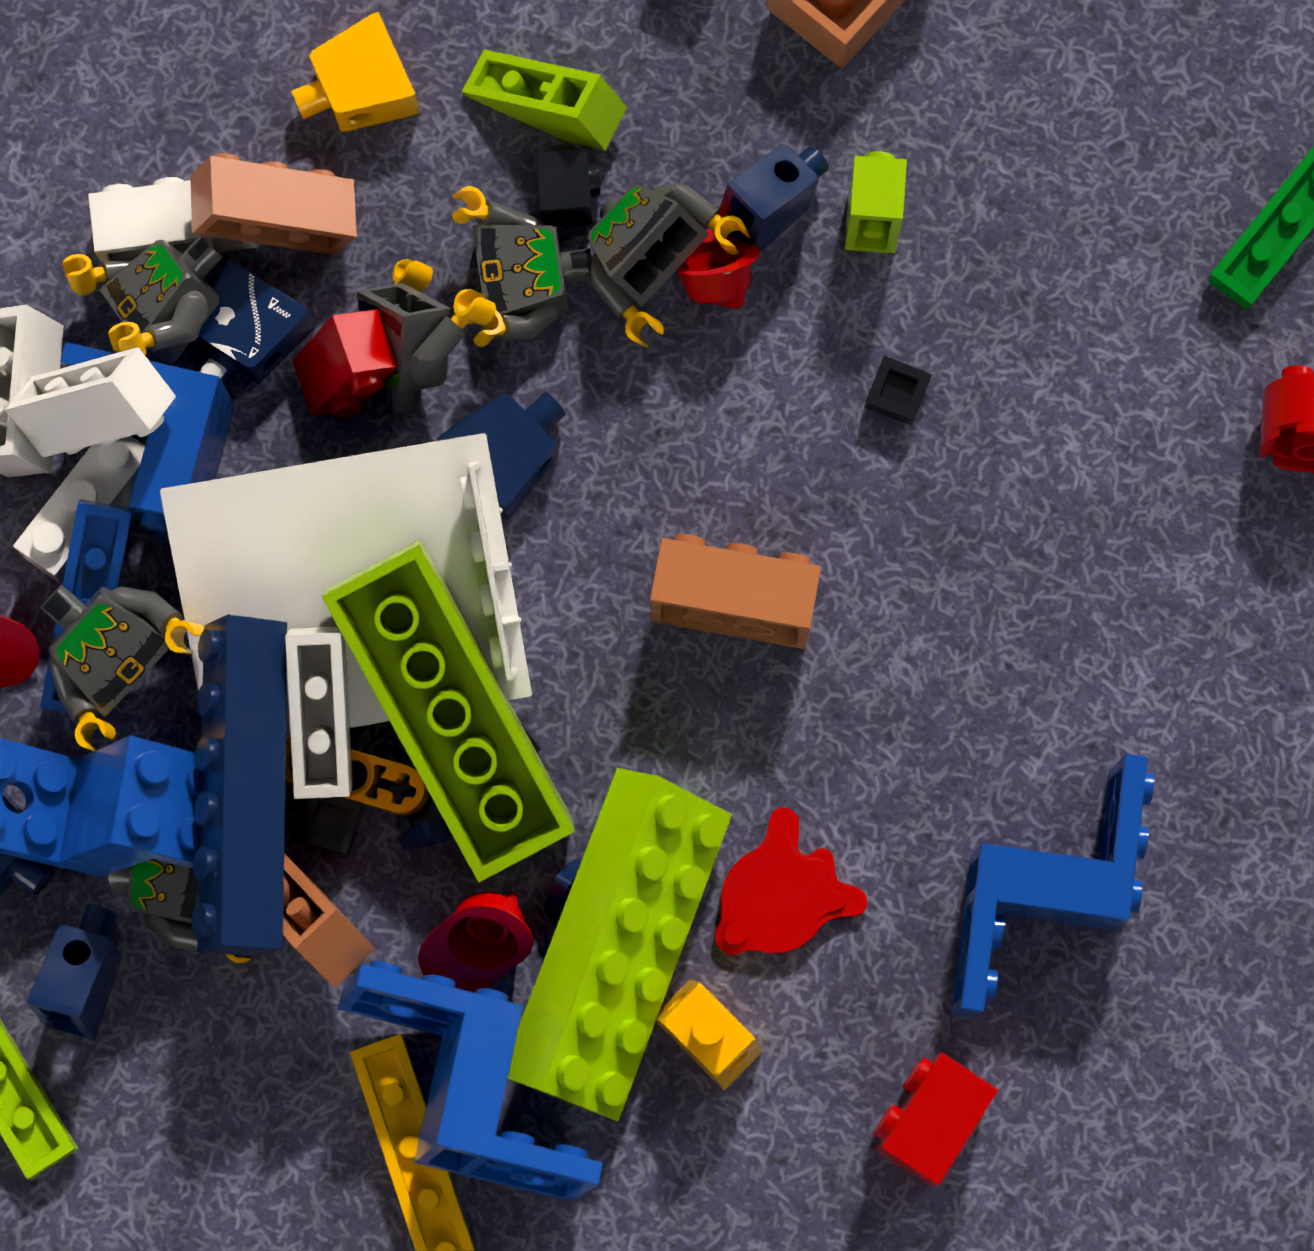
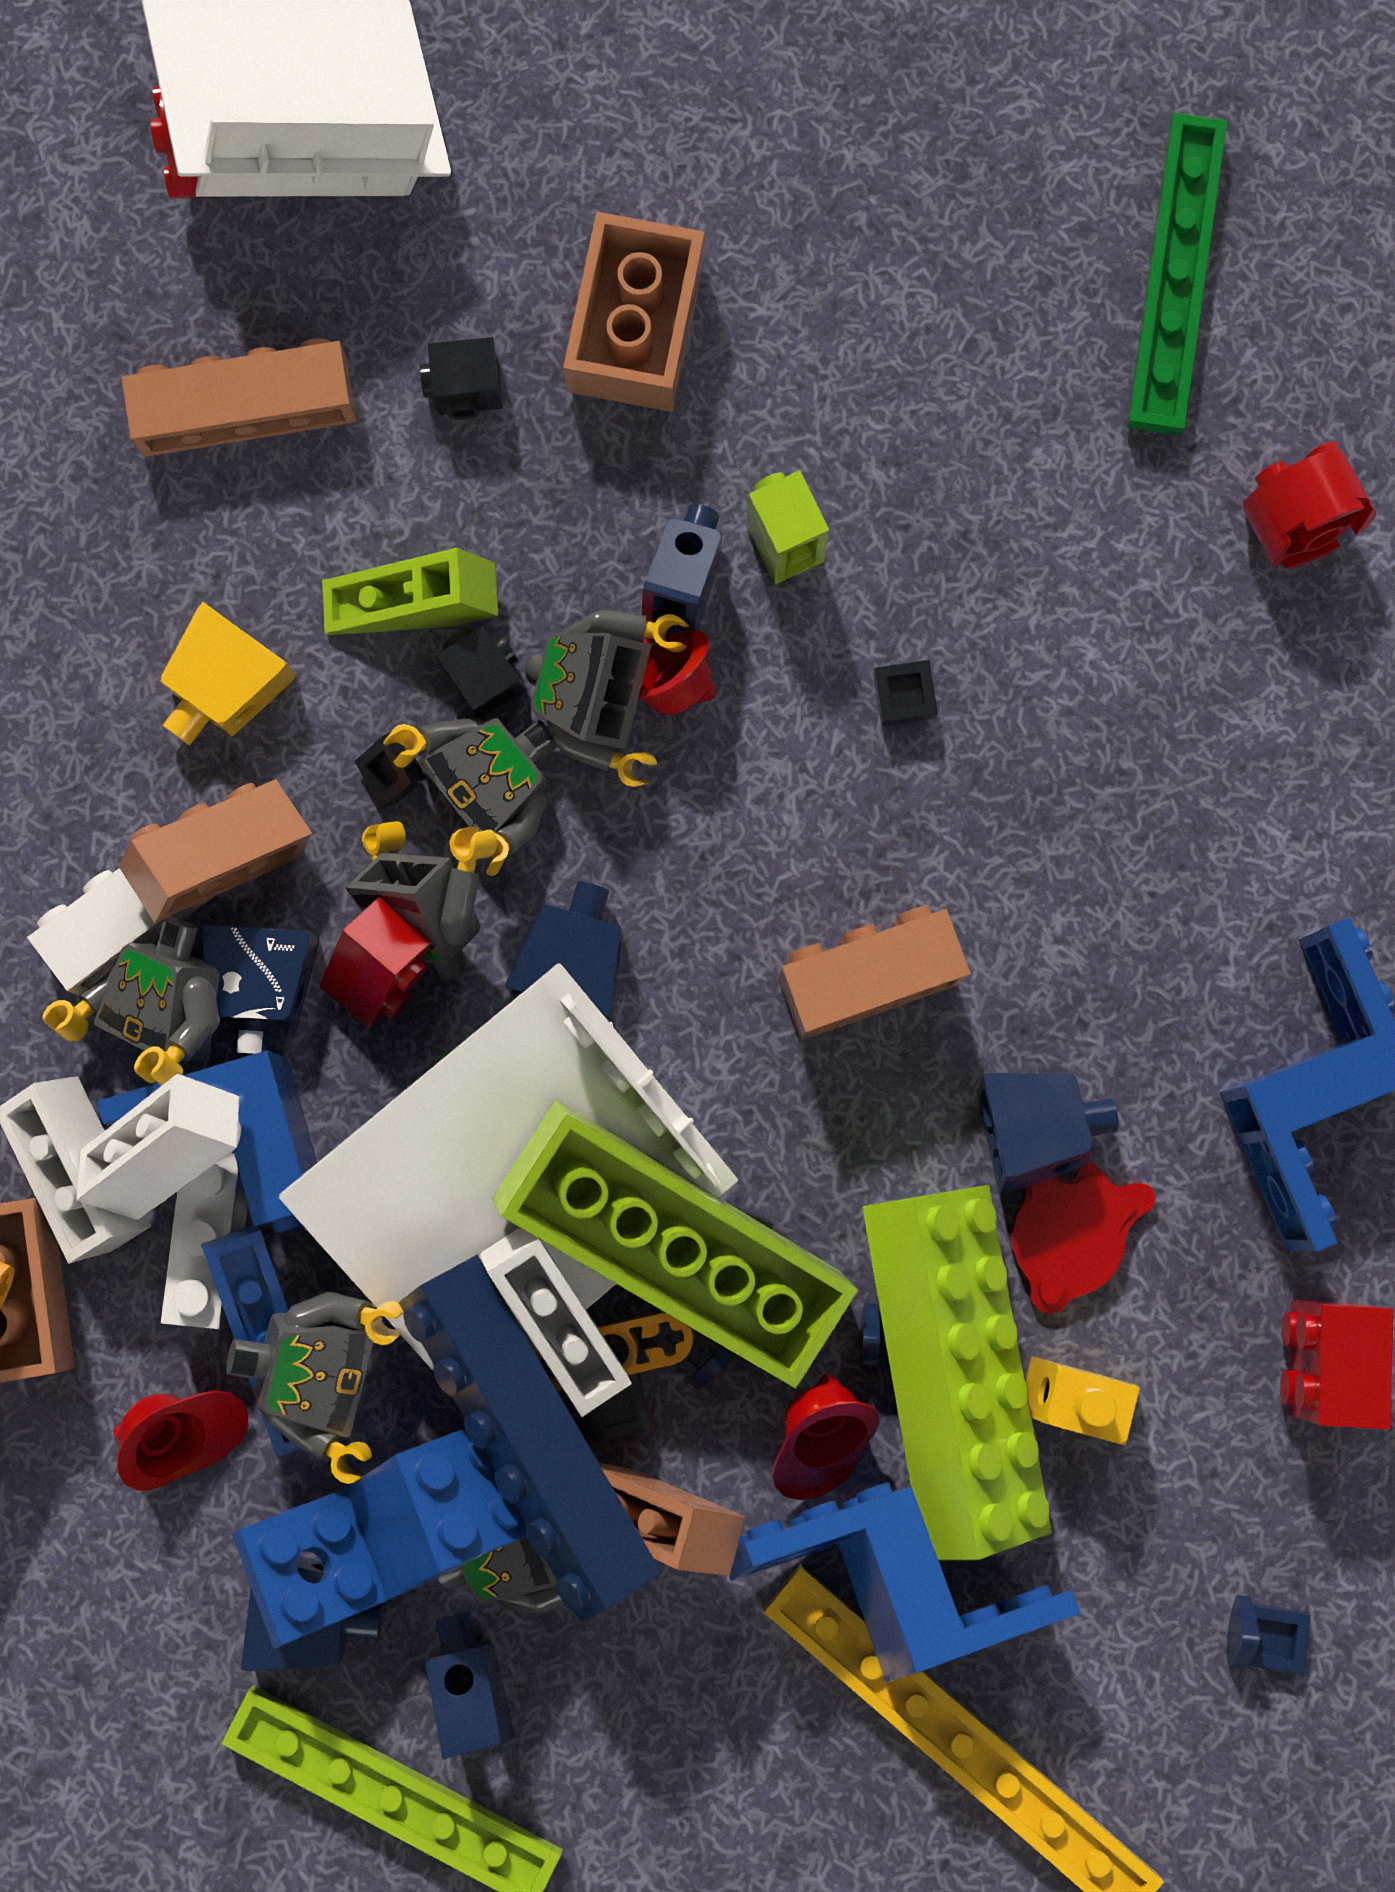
camera: 30 degrees left, 5 degrees up
(440, 230) = (386, 780): none -> black plate
(802, 793) = (1039, 1126): none -> dark blue torso

